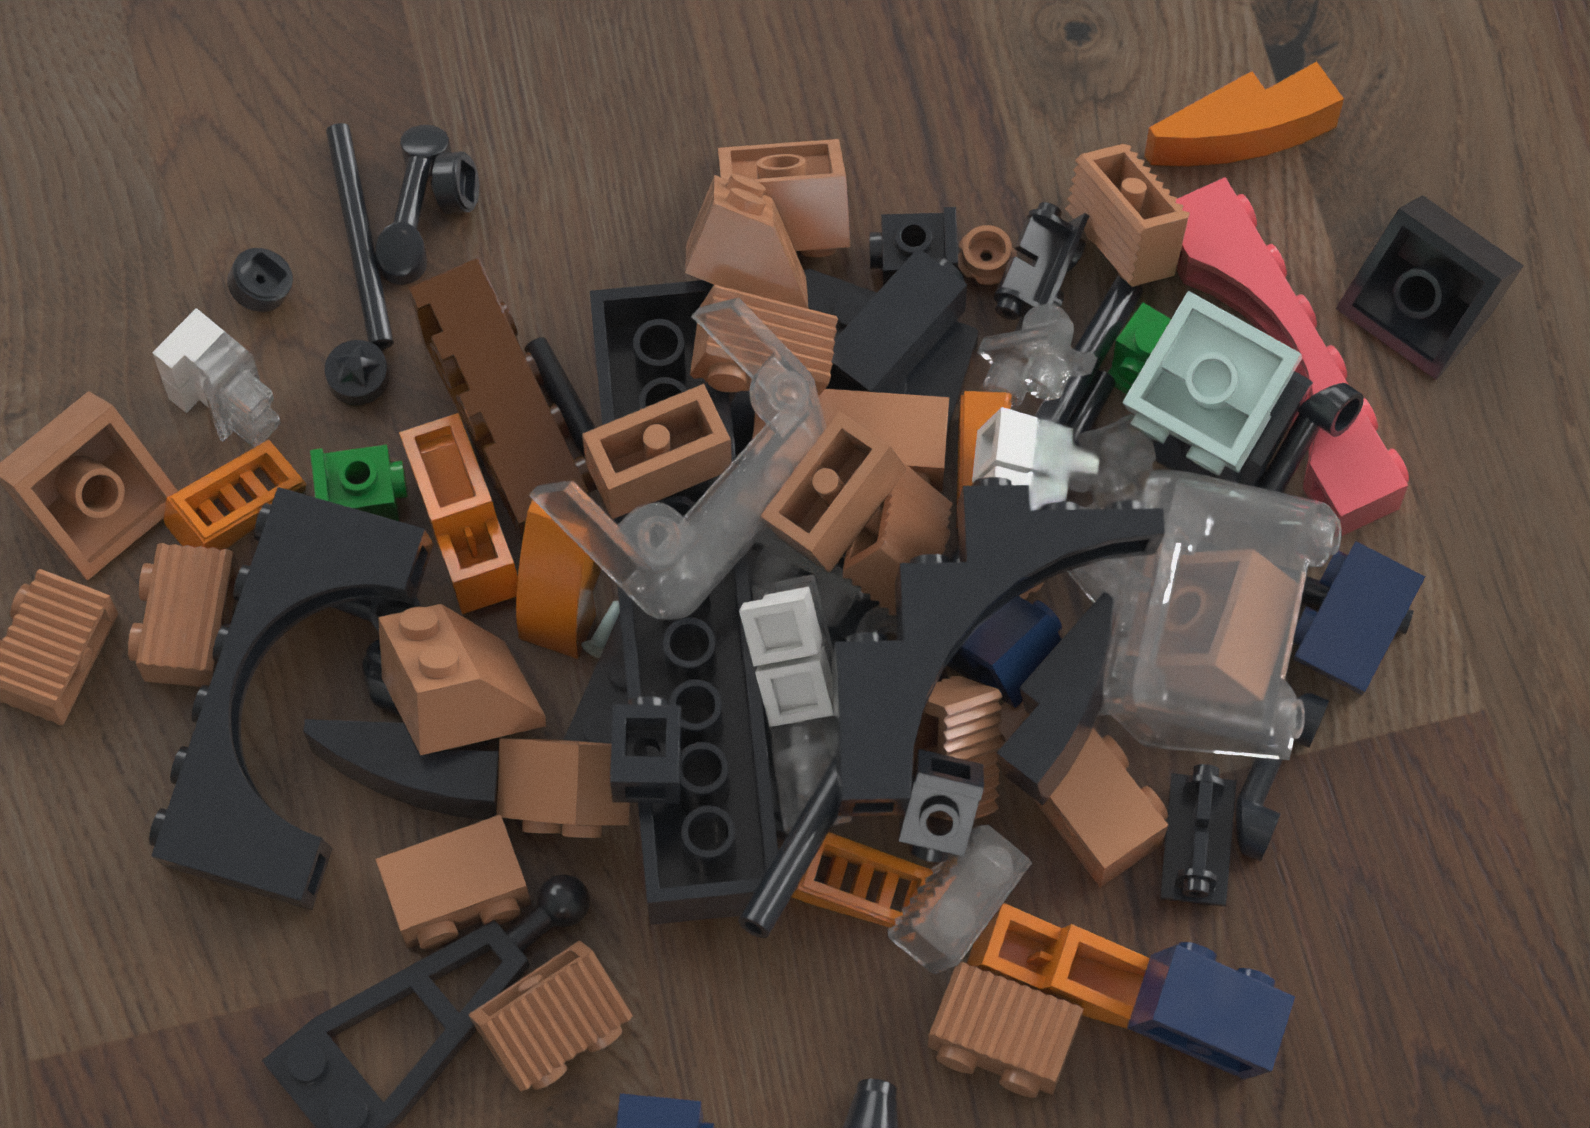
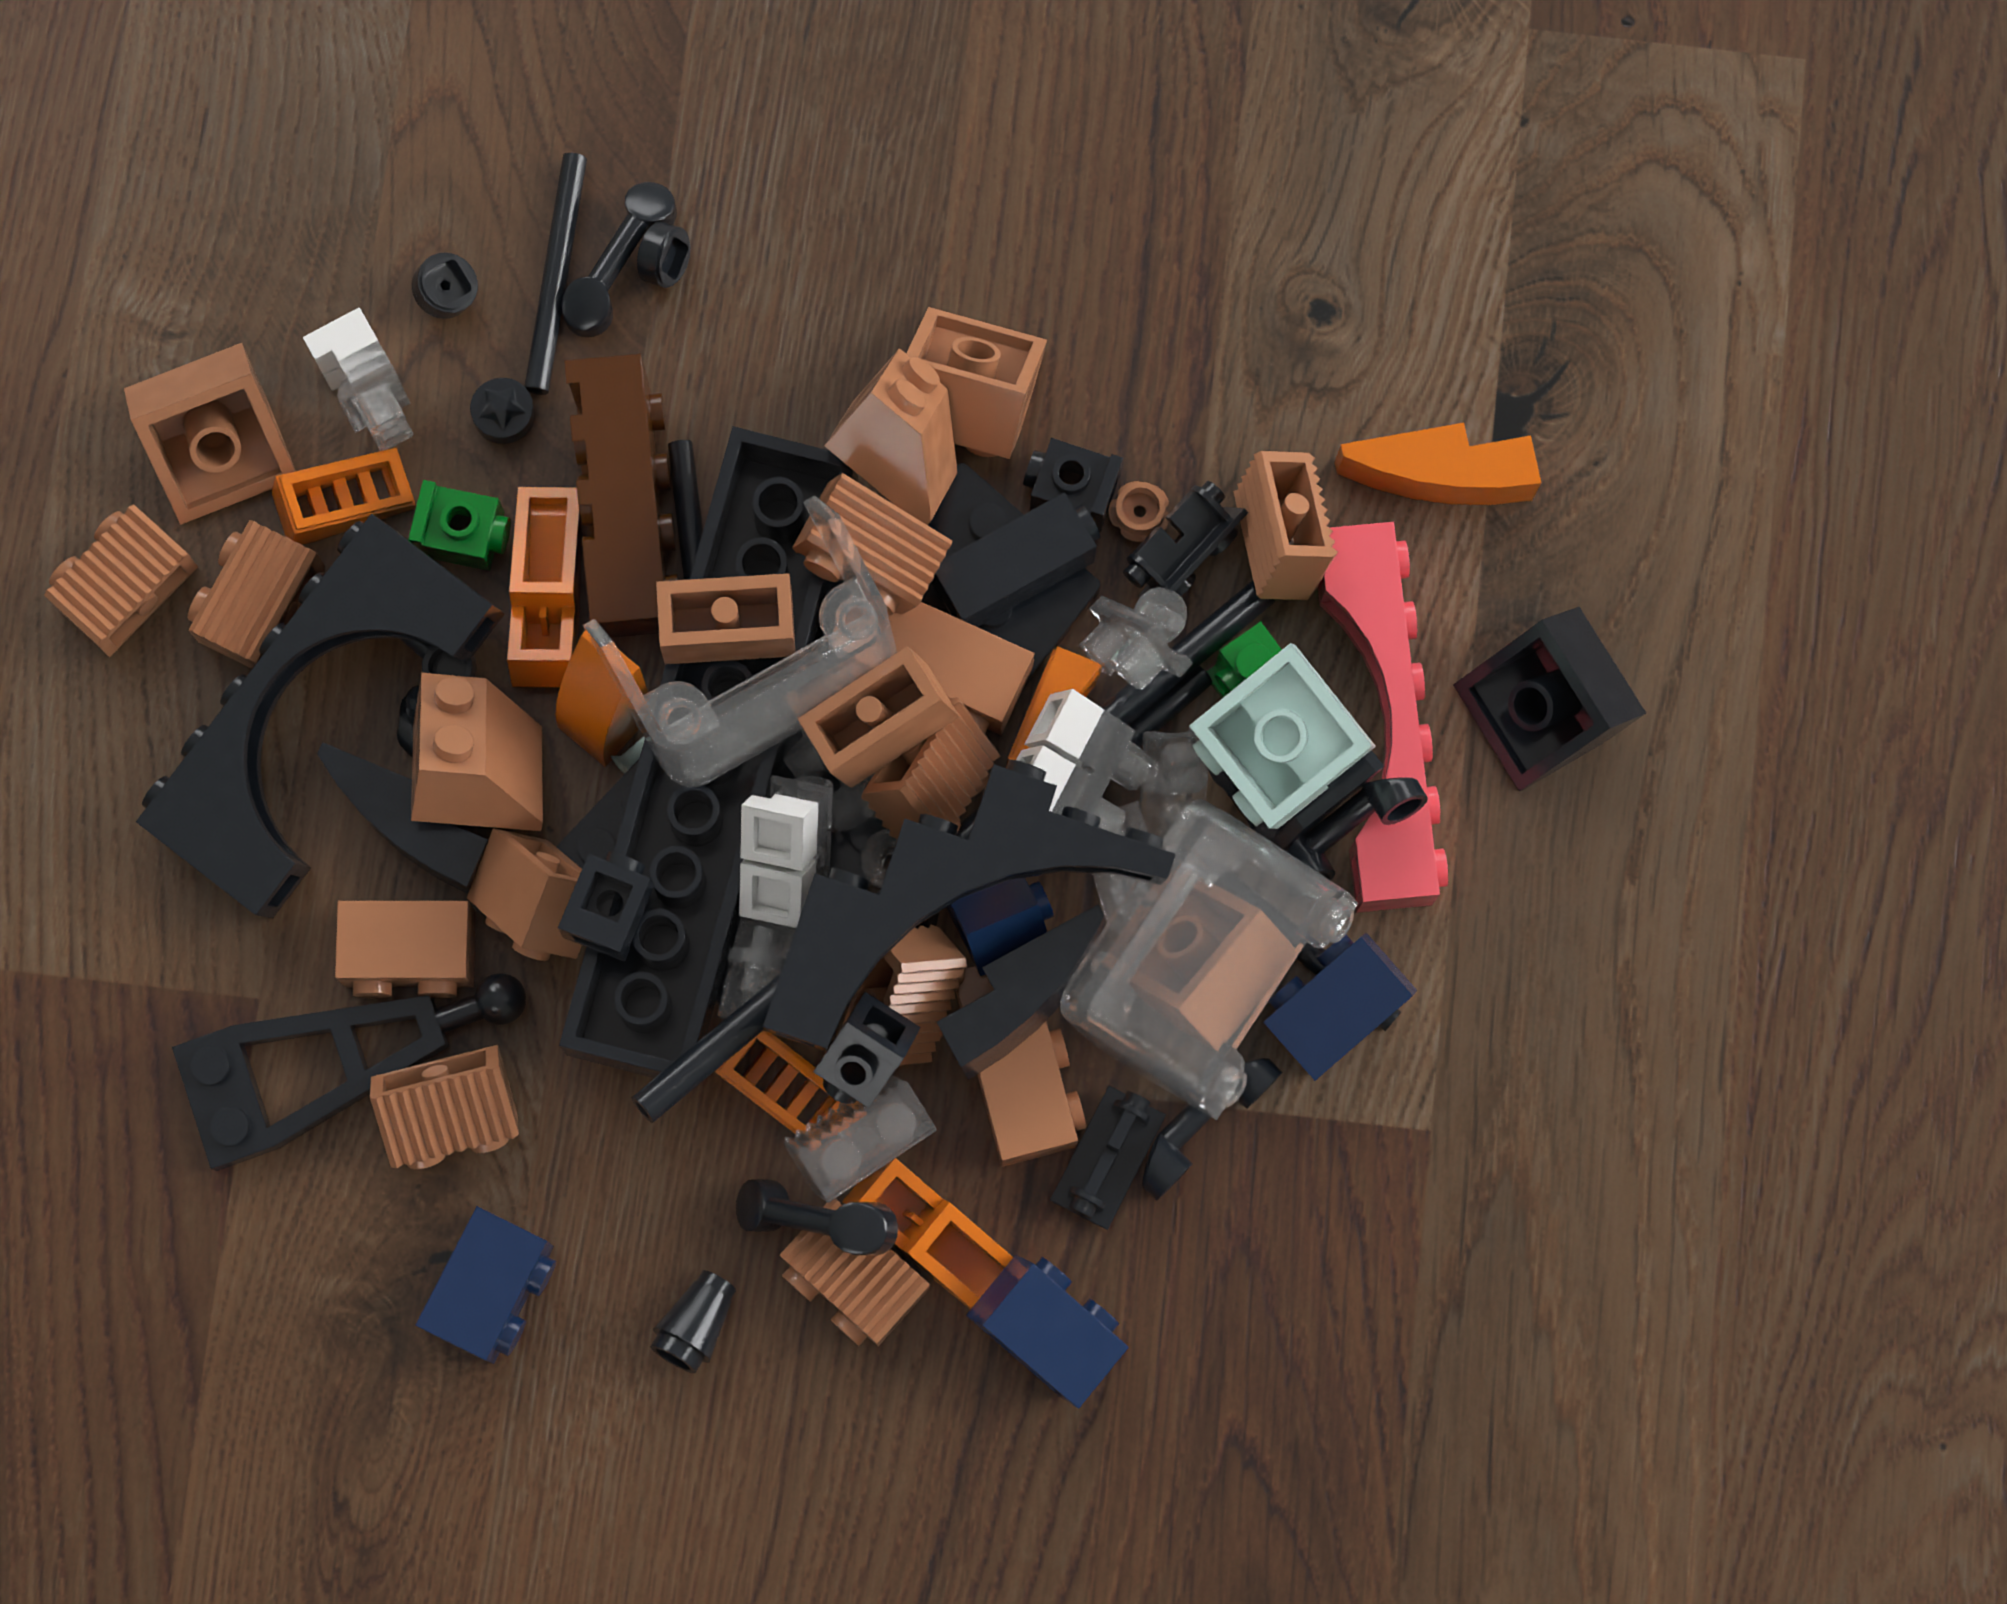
camera: 15 degrees right, 10 degrees up
(993, 973) = (853, 1227): none -> black bar

